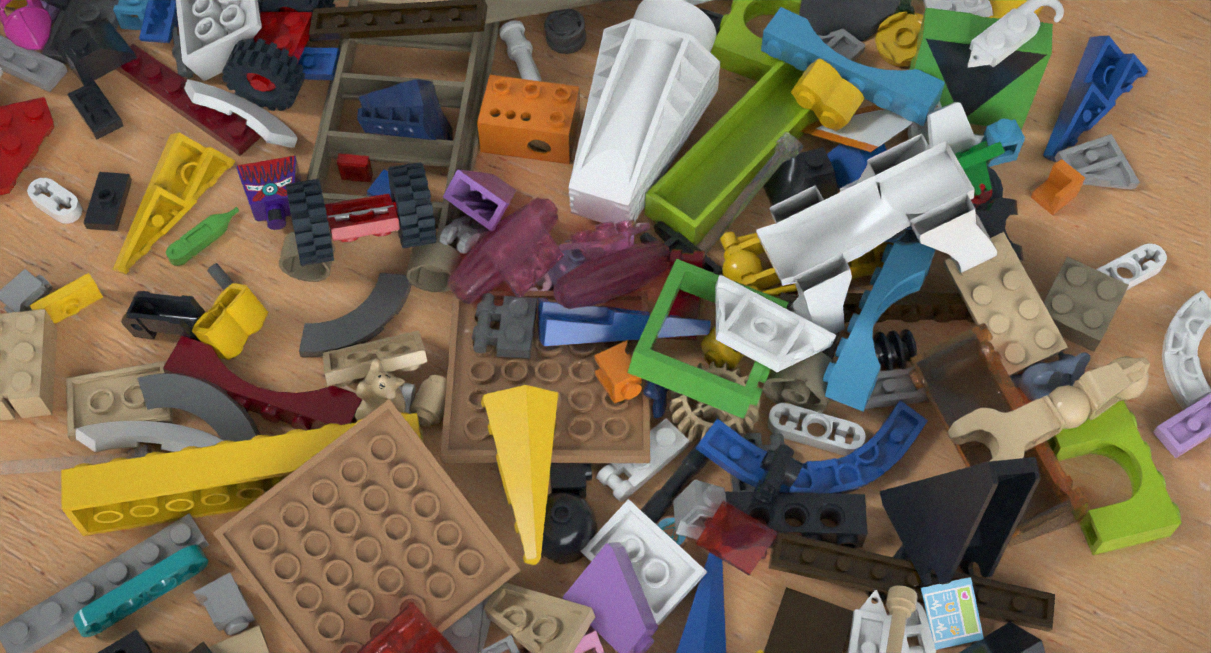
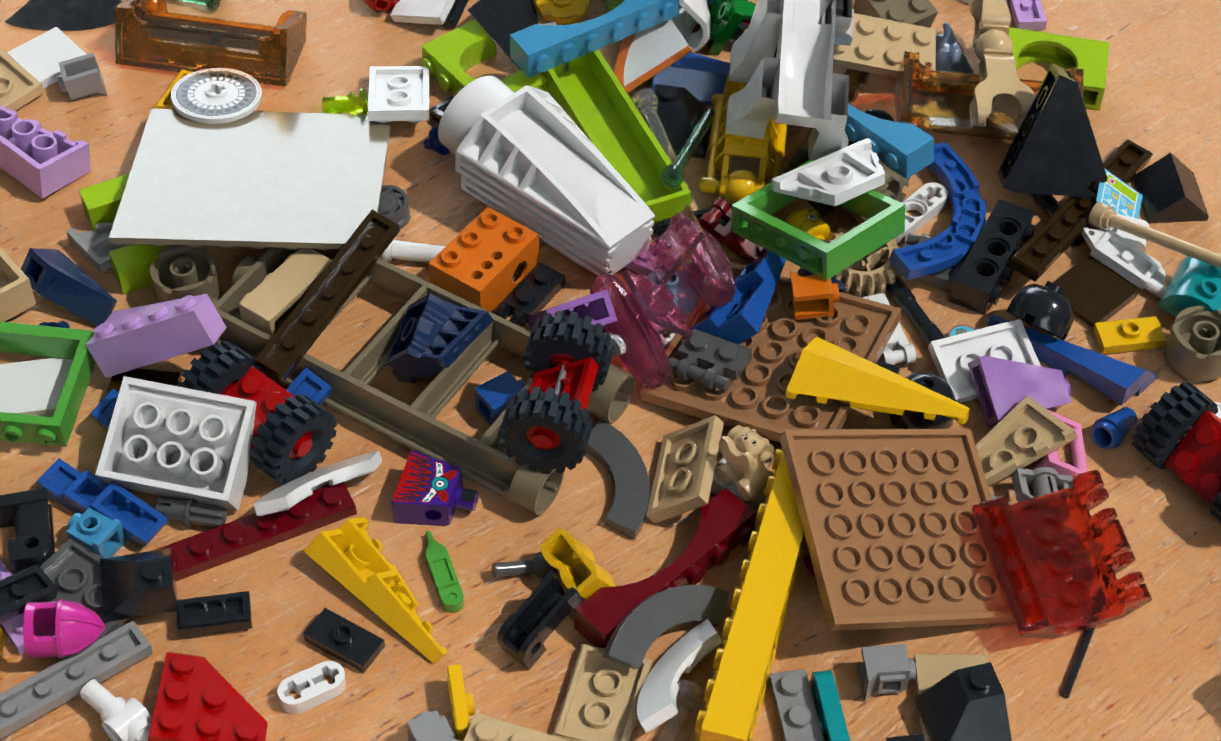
camera: 65 degrees left, 10 degrees down
(354, 167) = (450, 412): red tile -> none
(525, 169) = (531, 294): none -> black hinge
(695, 506) = (959, 303): light grey window -> none
(699, 203) = (674, 173): none -> clear green bar
(725, 588) = (1044, 308): none -> black cylinder
(736, 538) = (998, 286): clear red piece -> none
(779, 469) = (963, 235): black plate -> none
(827, 95) = (614, 52): yellow brick -> none

